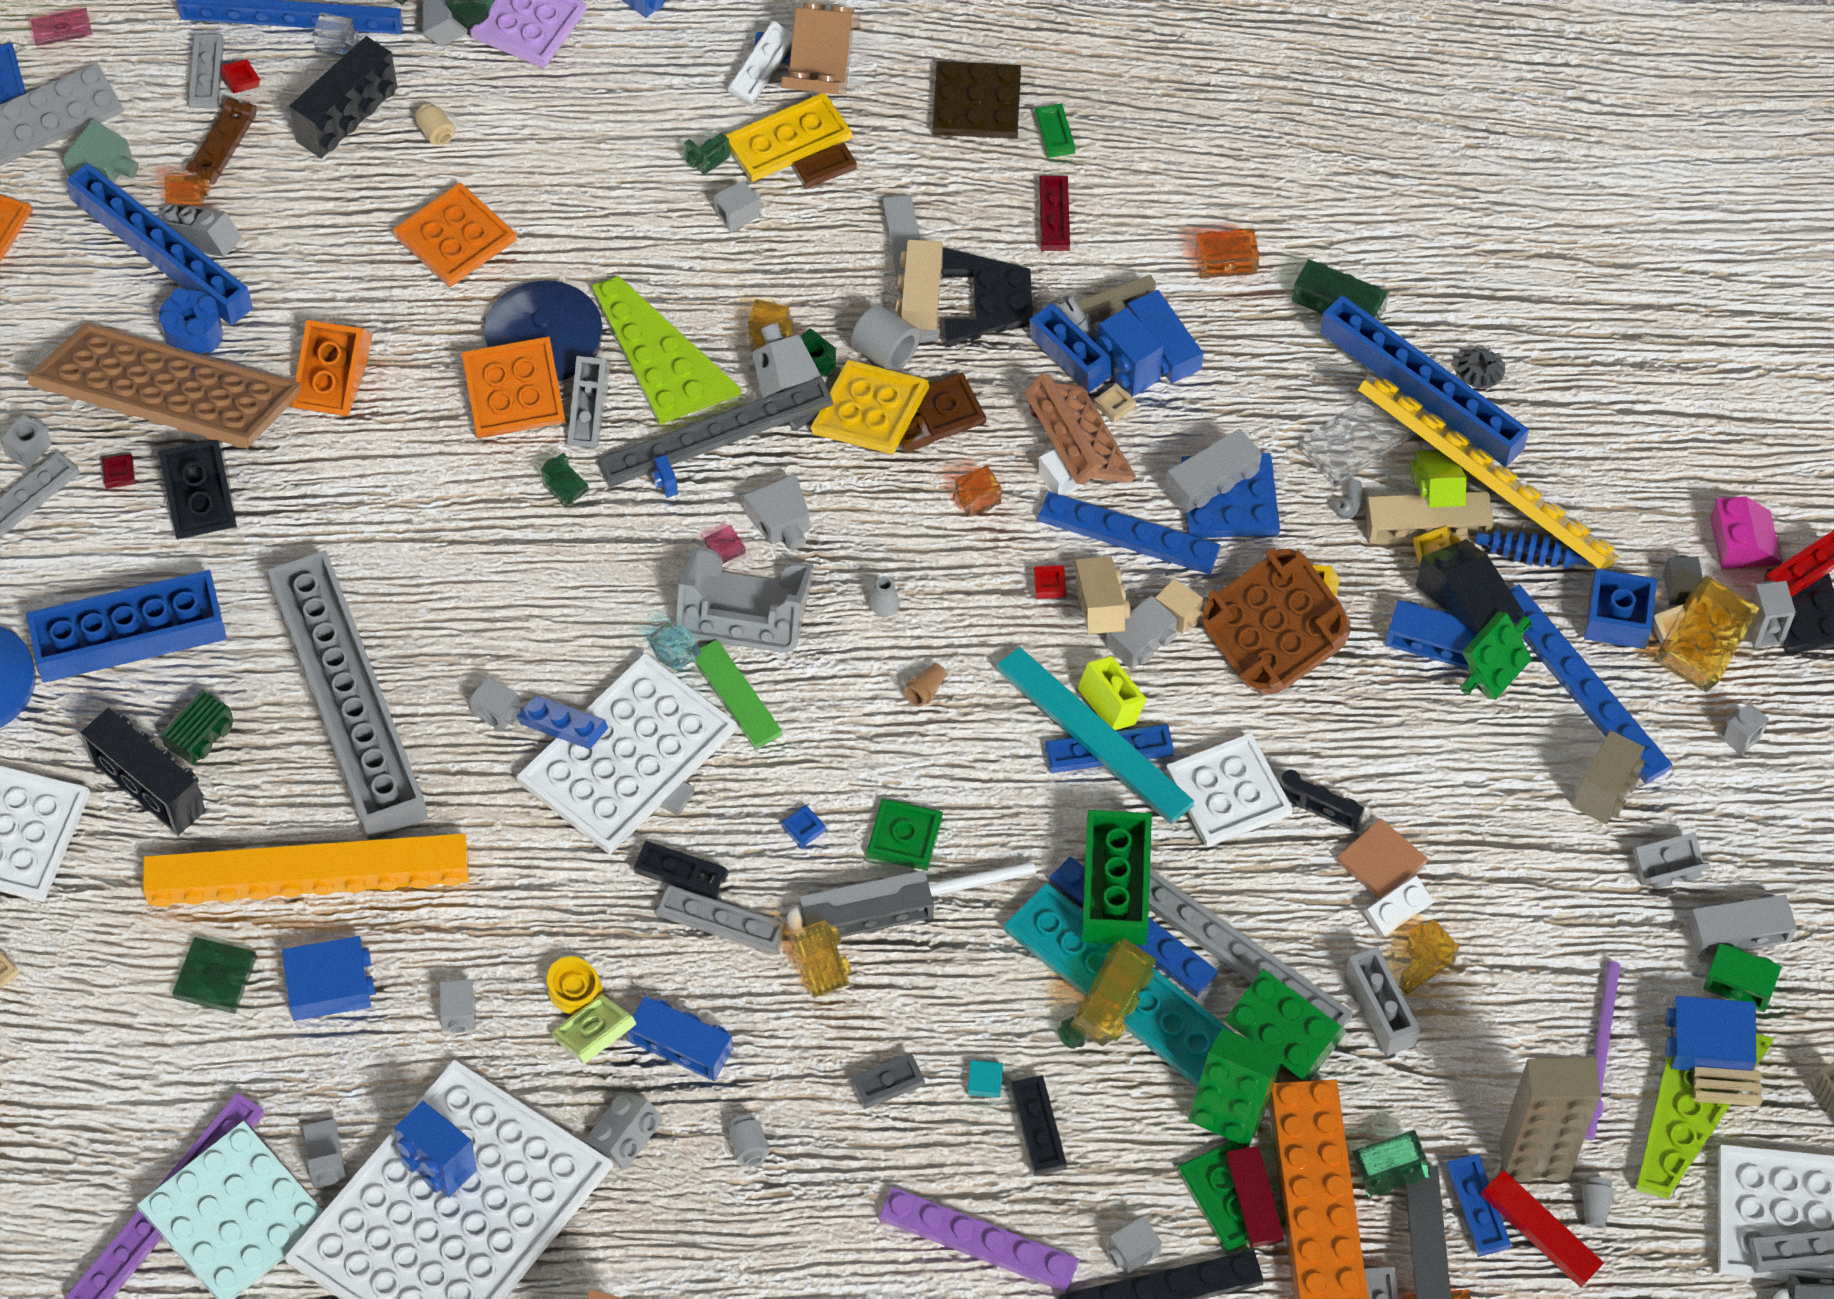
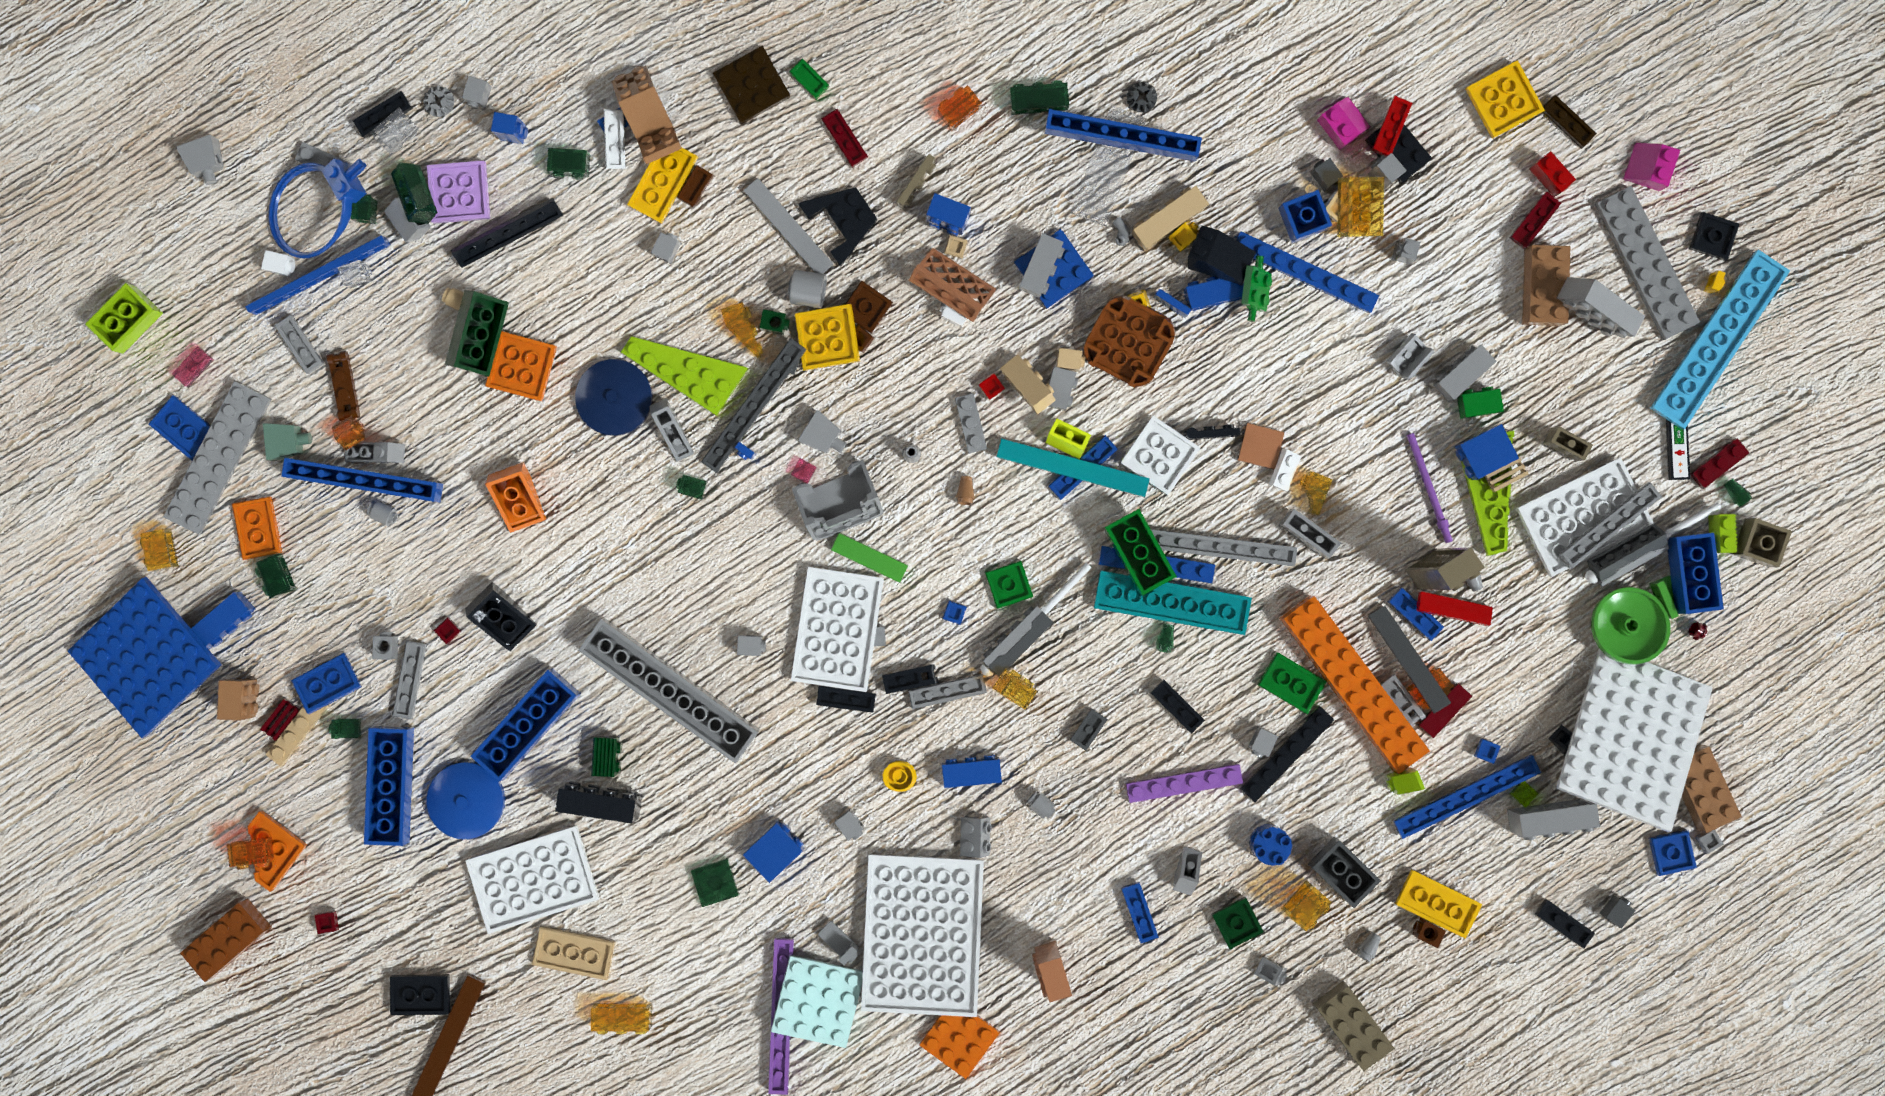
camera: 30 degrees left, 30 degrees up
(149, 294) = (382, 513): none -> light grey brick
(165, 385) = (437, 571): medium nougat plate -> none
(191, 321) = (427, 525): blue brick -> none
(240, 76) = (322, 336): red plate -> none
(306, 869) = (720, 799): light orange brick -> none
(343, 97) = (394, 317): black brick -> none
(430, 163) = (476, 333): none -> dark green brick
(435, 1149) = (899, 920): blue brick -> none
(513, 387) = (625, 448): orange plate -> none
(553, 89) = (506, 232): none -> black plate
(562, 722) = (793, 635): blue plate -> none
(574, 845) = (846, 699): none -> black plate
(593, 1028) = (927, 796): yellowish green tile -> none
(674, 645) = (820, 553): clear light blue brick -> none
(686, 58) = (568, 163): none -> clear green brick
(709, 155) = (627, 222): clear green bracket -> none
(782, 362) = (765, 344): light grey torso -> none
(920, 283) = (804, 240): tan brick -> none
(977, 491) = (918, 355): clear orange brick -> none
(985, 1079) = (1135, 696): teal tile -> none
(990, 612) = (971, 423): none -> light grey plate
(1070, 347) = (913, 230): blue brick -> none
(1077, 316) = (908, 211): light grey pin -> none
(1114, 993) = (1176, 618): clear yellow brick -> none
(1129, 532) = (1014, 327): blue plate -> none
(1180, 351) = (957, 187): blue brick -> none
(1235, 1087) = (1270, 636): green brick -> none
(1254, 1196) = (1306, 680): dark red tile -> none
(1286, 1023) = (1270, 579): green brick -> none
(1367, 616) = (1172, 303): none -> blue tile
(1391, 1163) = (1364, 622): clear green brick -> none
(1438, 479) = (1166, 195): lime brick -> none
(1480, 465) = (1190, 175): yellow plate -> none
(1520, 546) = (1235, 204): blue piece -> none
(1610, 778) = (1355, 329): dark tan brick -> none

